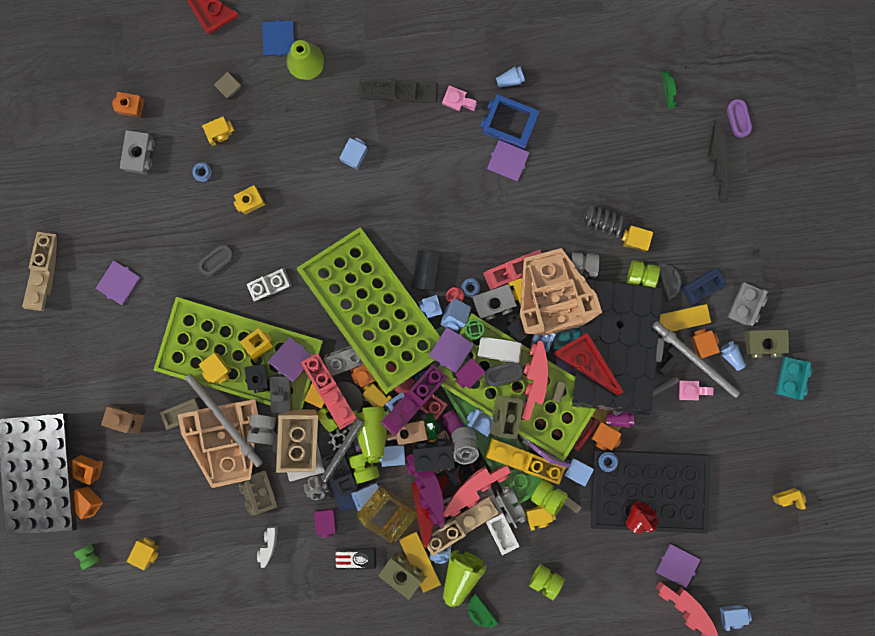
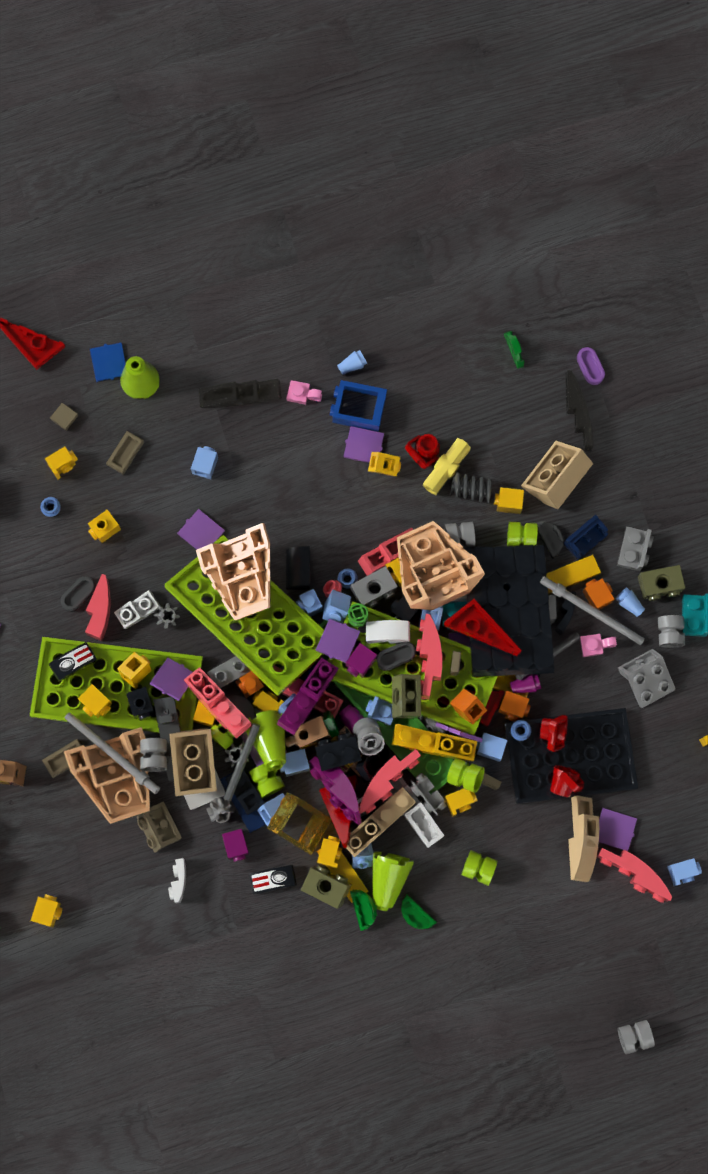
camera: 15 degrees left, 10 degrees down
(200, 326) = (72, 661): none -> slope
(234, 279) = (99, 610): none -> coral slope
(280, 130) = (125, 452): none -> dark tan tile
(295, 302) = (160, 615): none -> light grey gear
(340, 219) = (200, 530): none -> medium lavender piece
(369, 269) = (240, 571): none -> light nougat wedge
(410, 545) = (329, 852): none -> yellow brick
(434, 601) = (365, 908): none -> green tile
(517, 183) = (377, 462): none -> yellow brick
(563, 436) = (468, 706): none -> orange brick
(565, 175) = (425, 450): none -> red piece
(583, 195) = (446, 466): none -> light yellow piece
(640, 470) = (554, 732): none -> red piece
(648, 577) = (584, 845): none -> tan slope
(687, 220) = (557, 474): none -> tan slope
(736, 429) = (648, 677): none -> light grey bracket
(767, 391) = (671, 631): none -> light grey wheel

